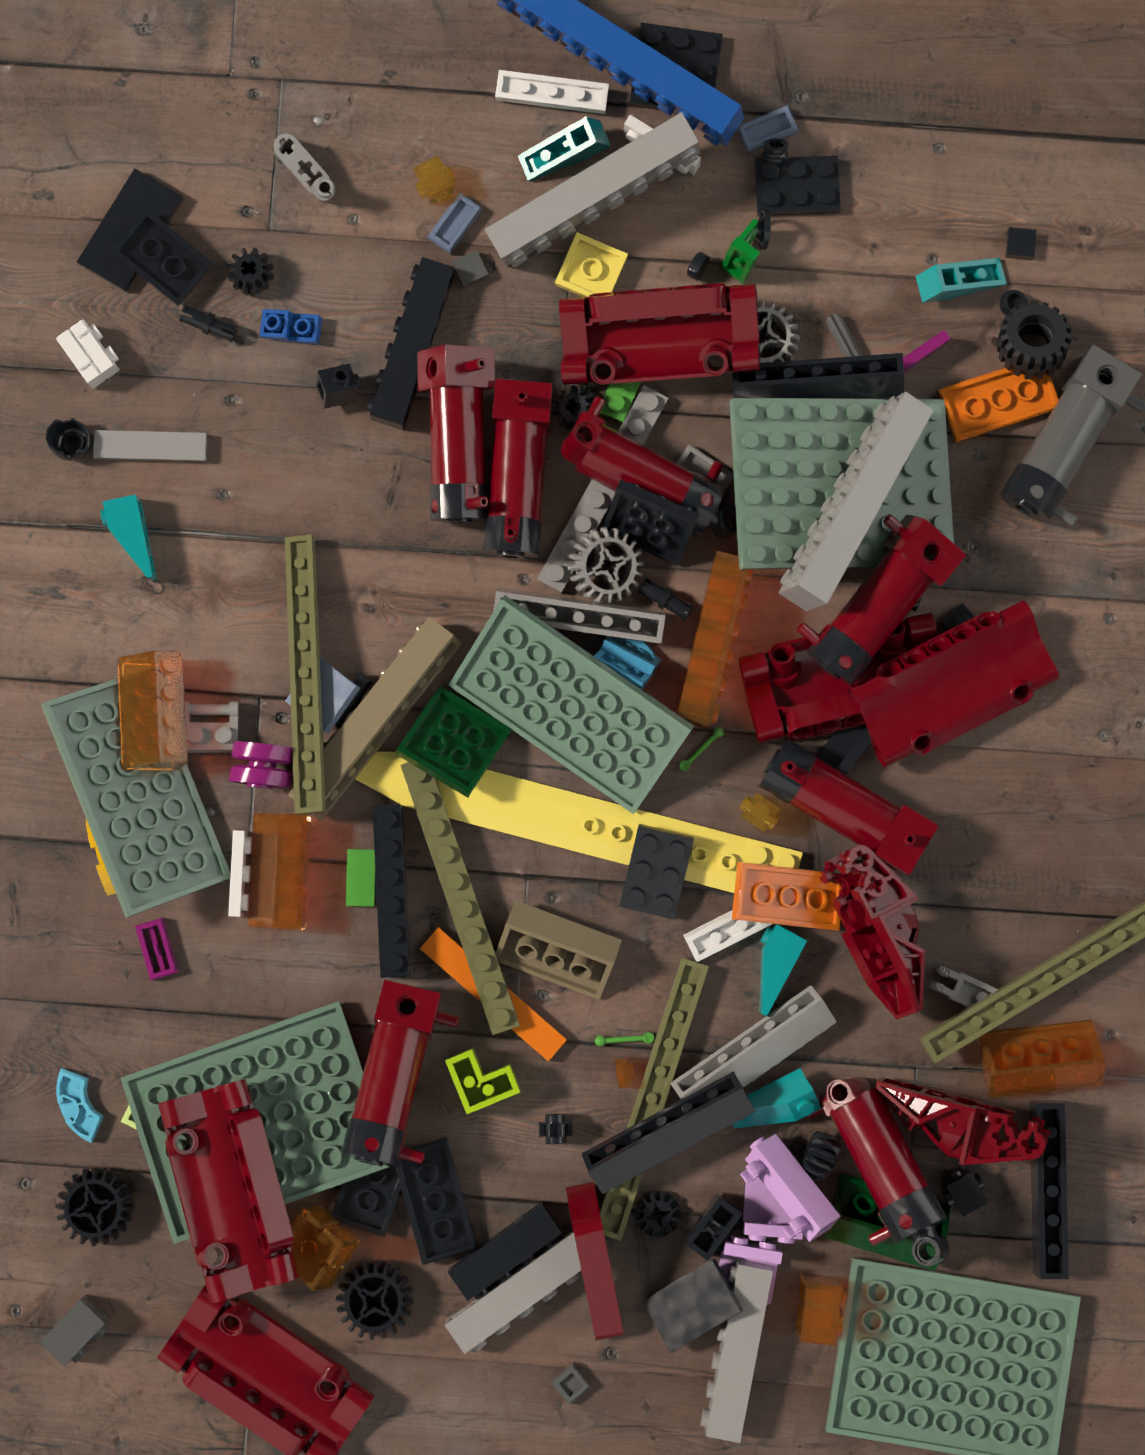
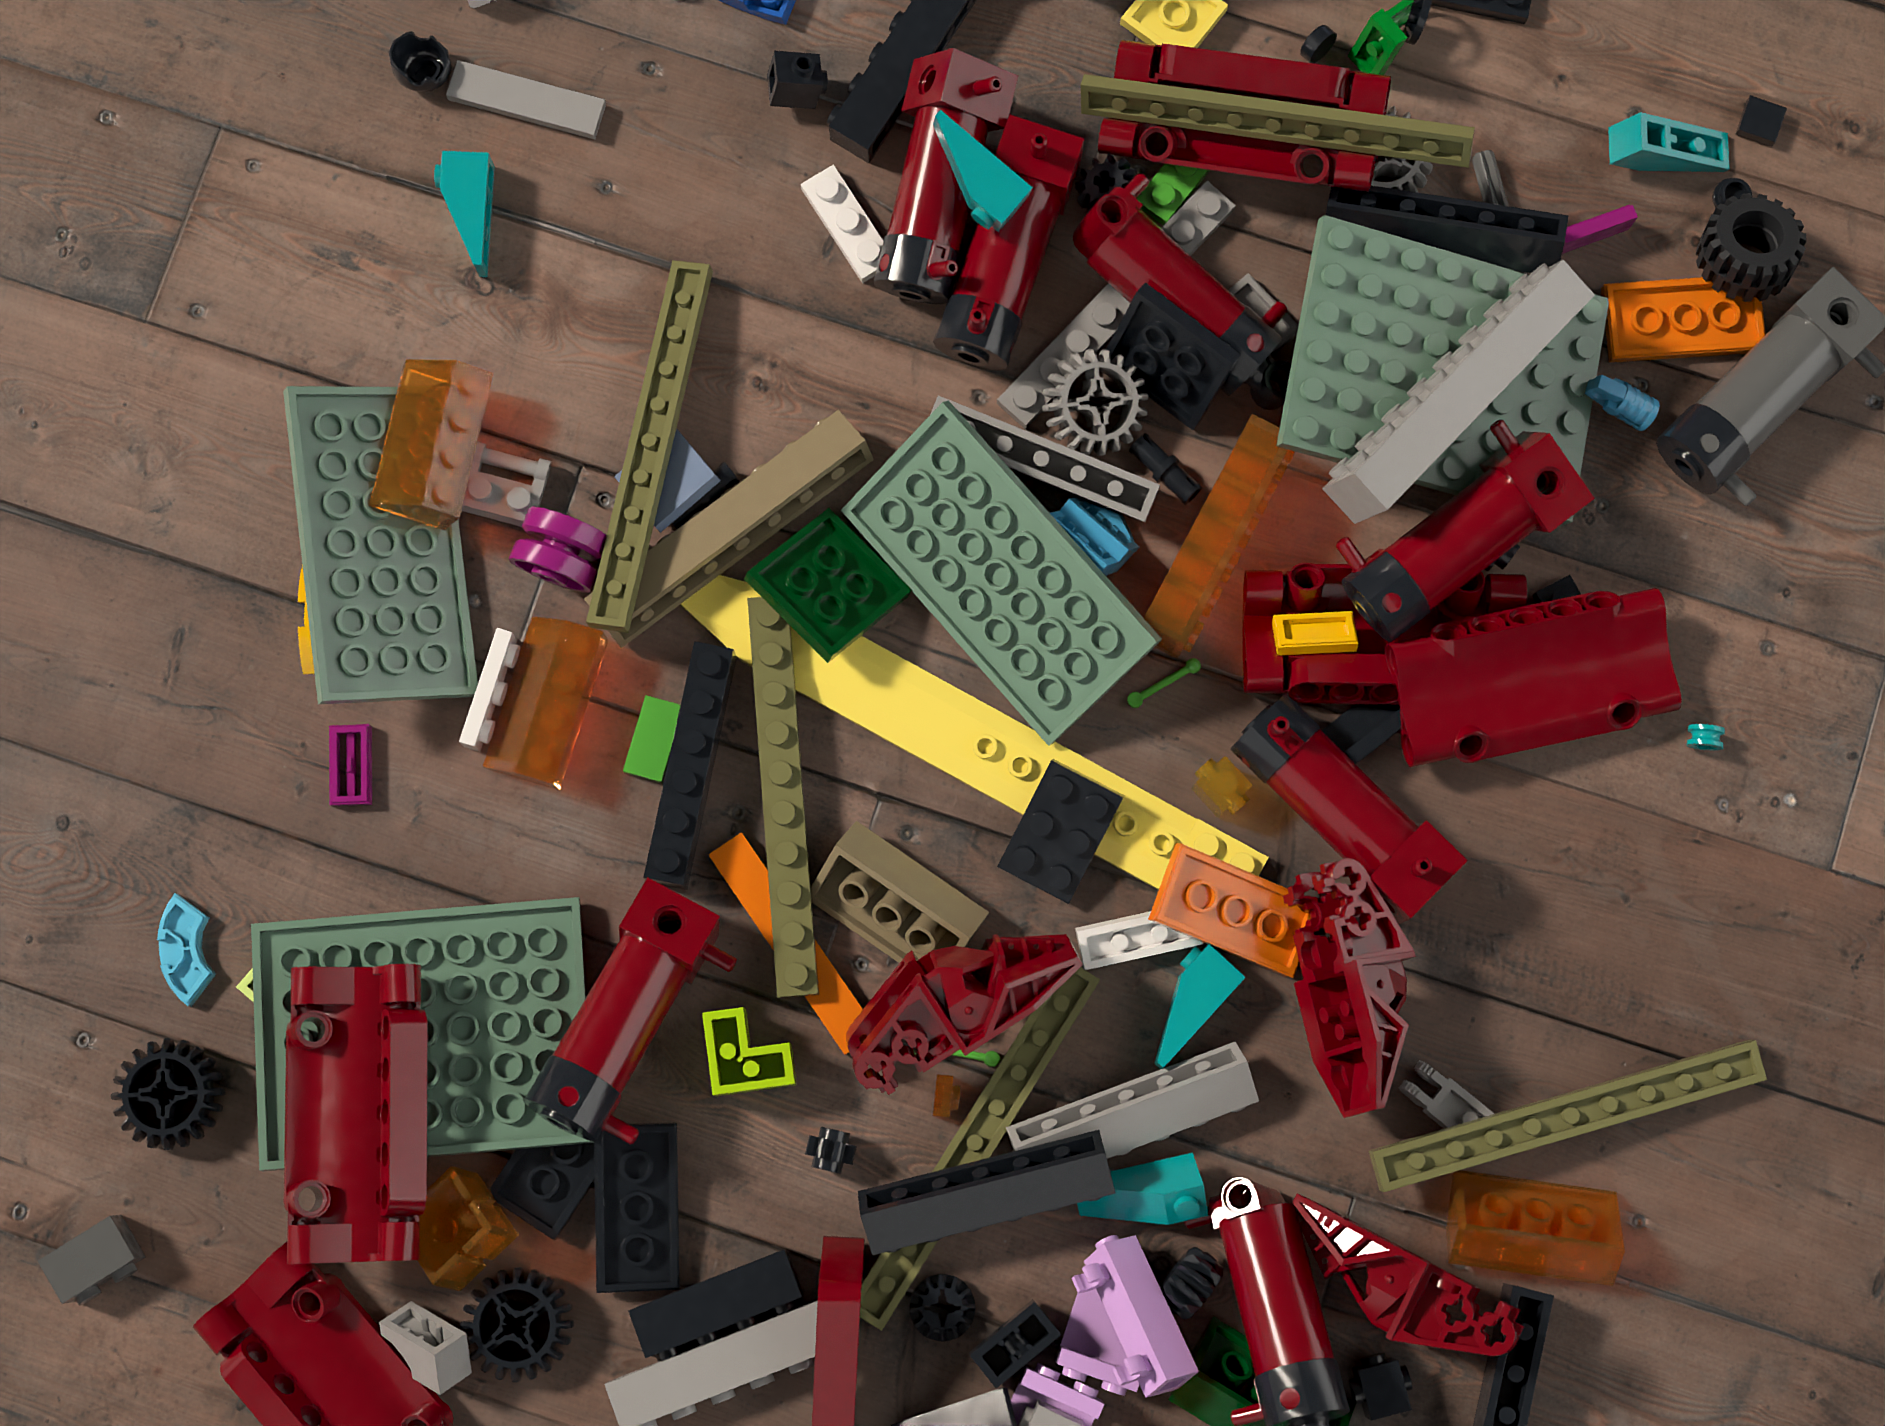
camera: 15 degrees right, 5 degrees down
(319, 1329) = (429, 1345): none -> light grey arch
(398, 477) = (845, 221): none -> white plate
(490, 433) = (985, 181): none -> teal slope
(616, 1009) = (955, 1002): none -> dark red connector
(683, 335) = (1277, 120): none -> olive plate
(797, 690) = (1315, 633): none -> yellow tile
(971, 471) = (1623, 401): none -> dark azure hinge
(1080, 693) = (1705, 737): none -> teal bush

